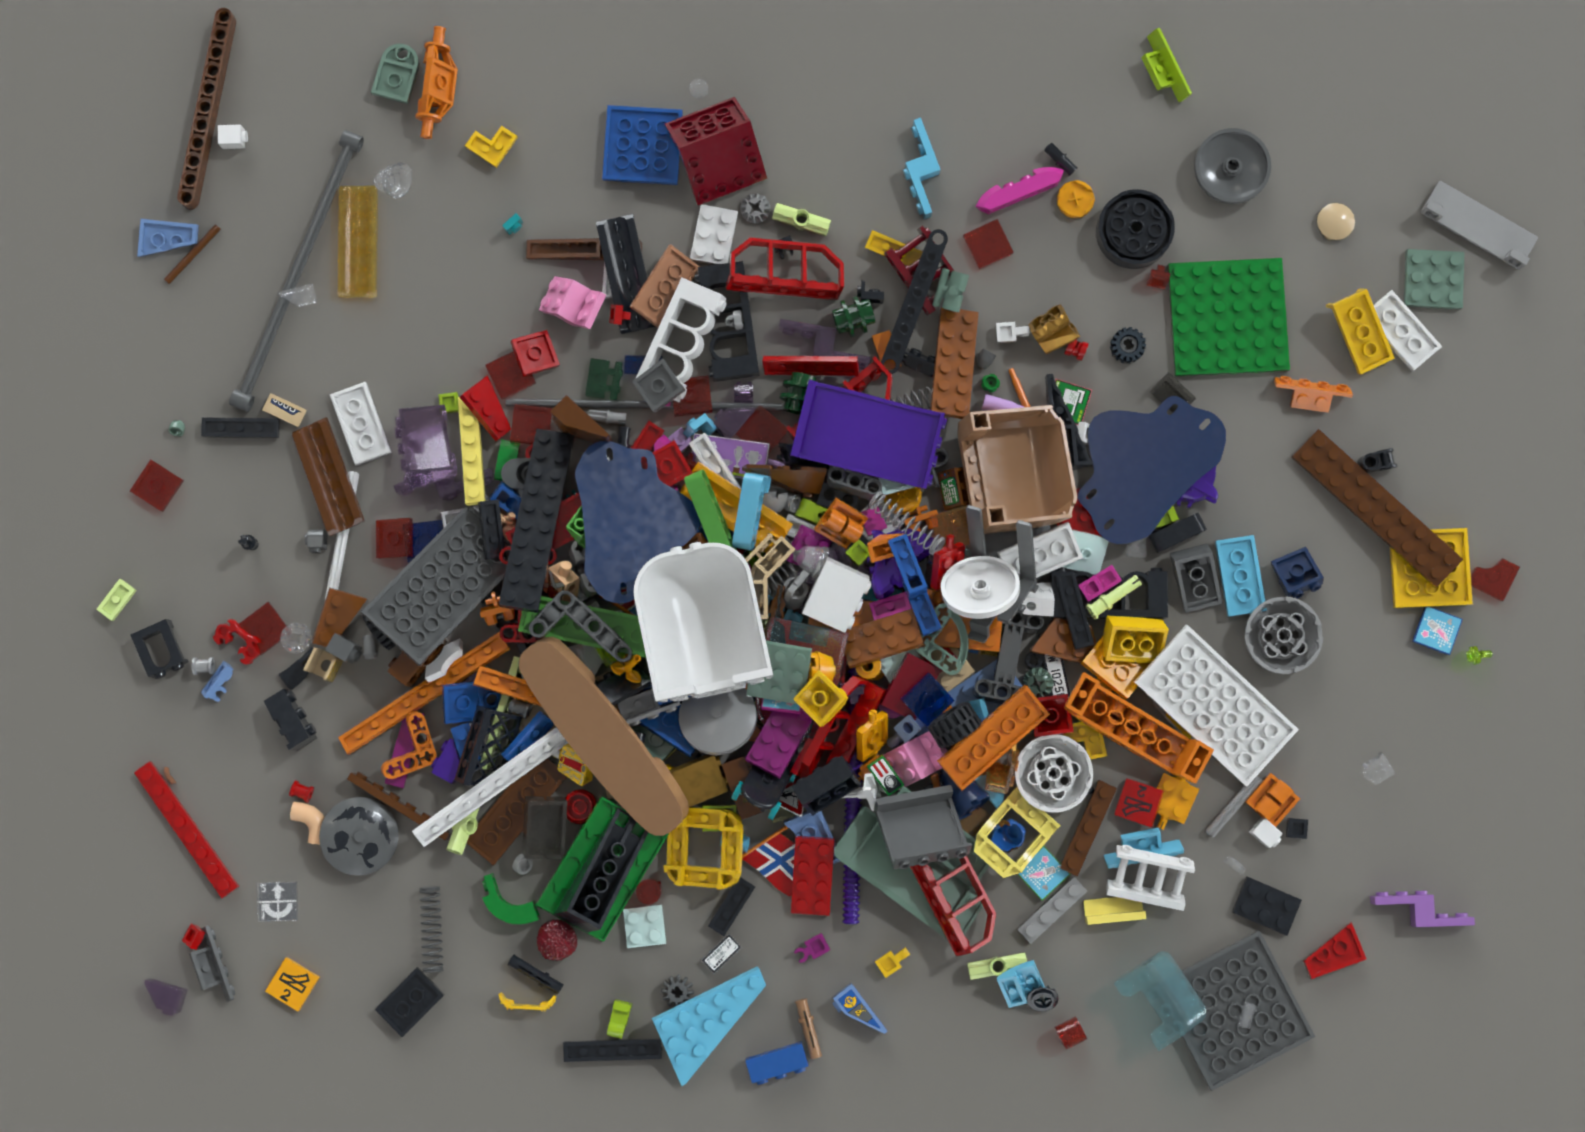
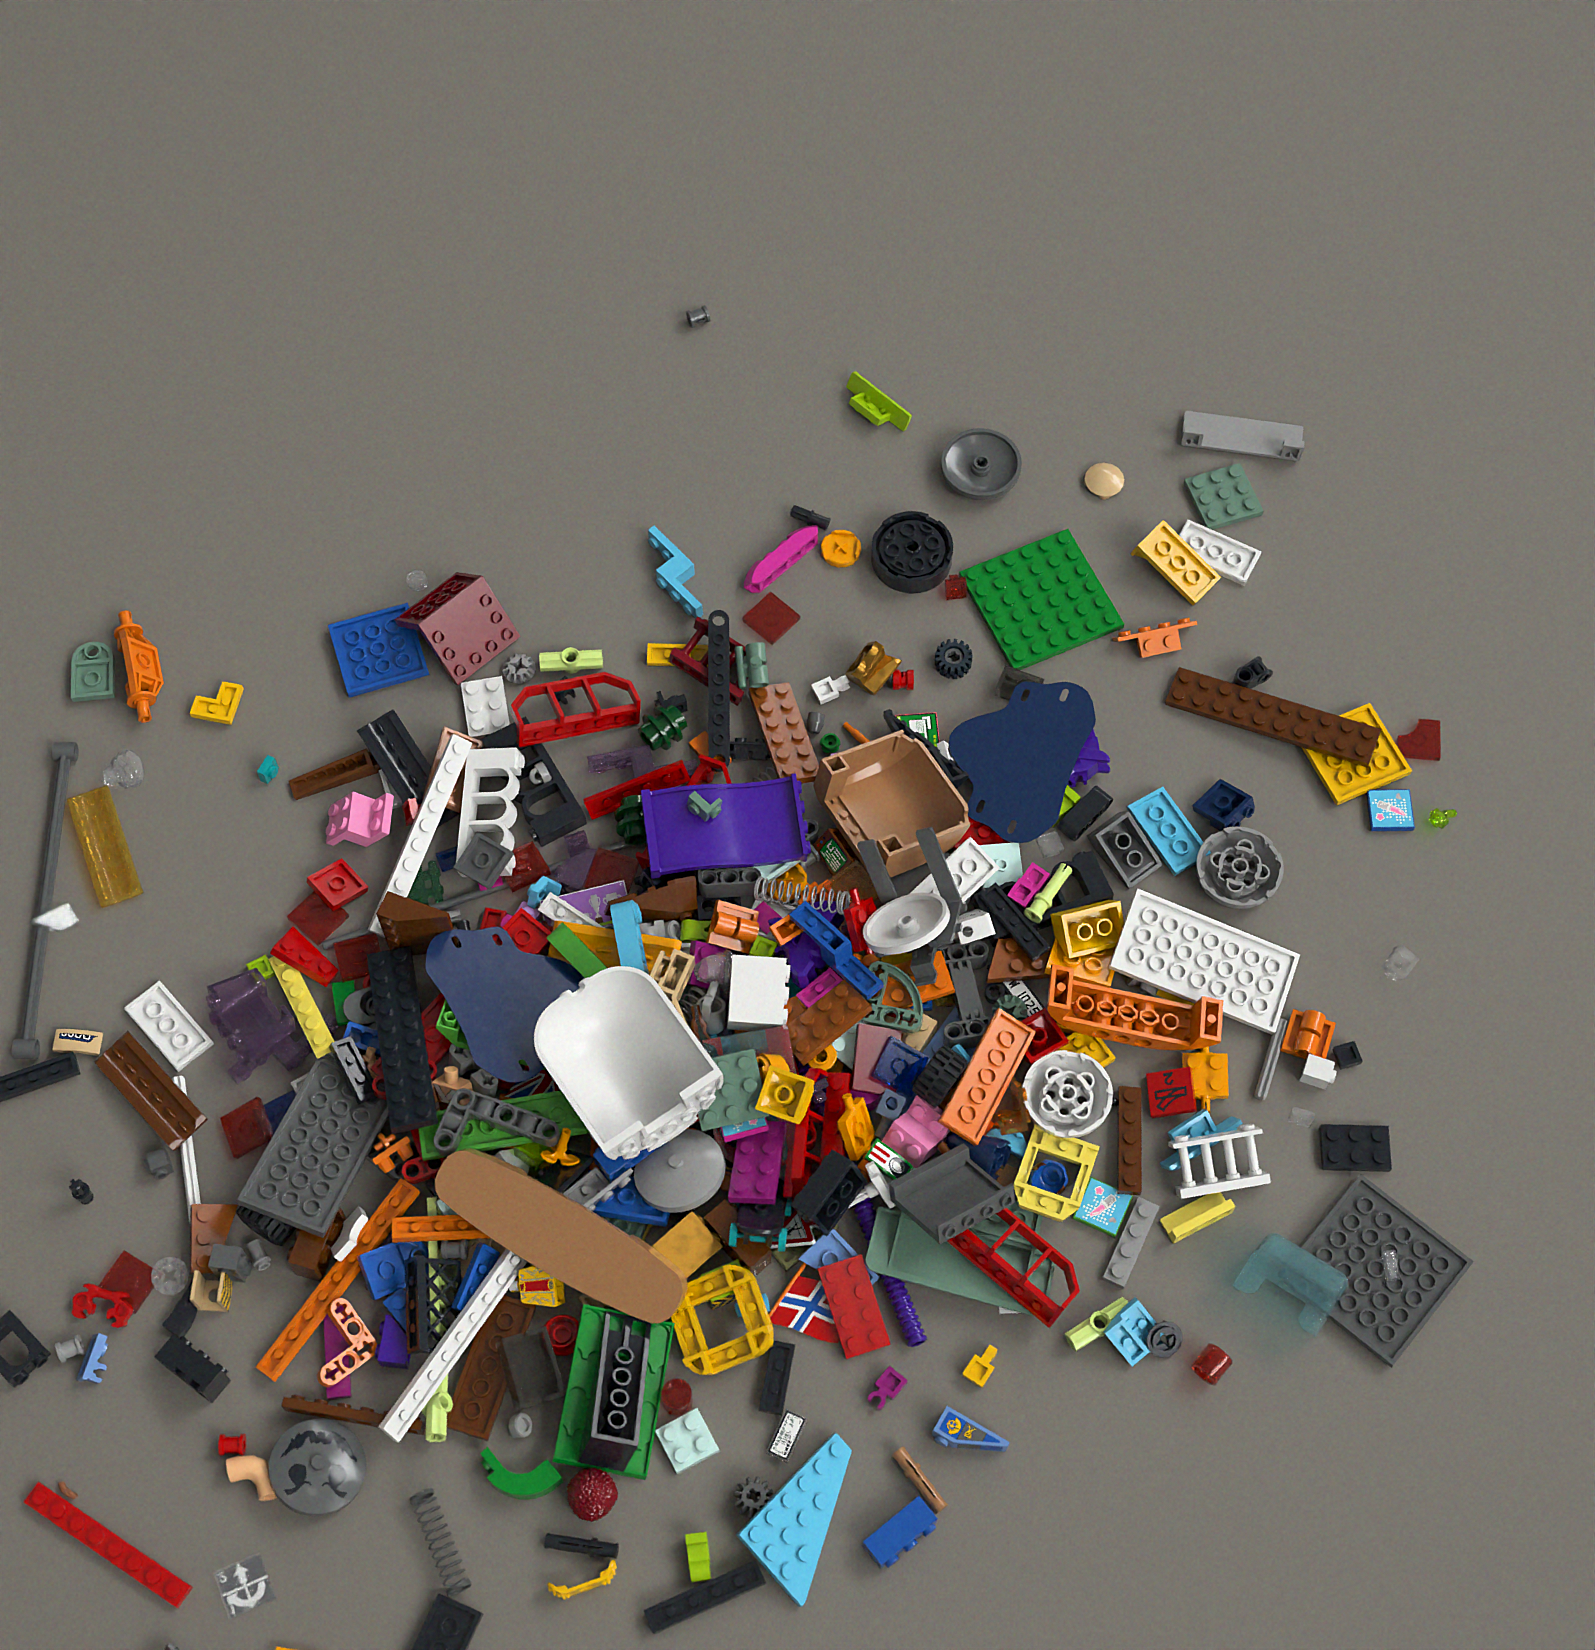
camera: 25 degrees left, 20 degrees down
(619, 335) = (425, 822): none -> white plate
(851, 414) = (700, 807): none -> sand green bracket
(1338, 952) = (1451, 1168): red wing -> none
(1422, 909) = (1516, 1086): medium lavender bracket -> none

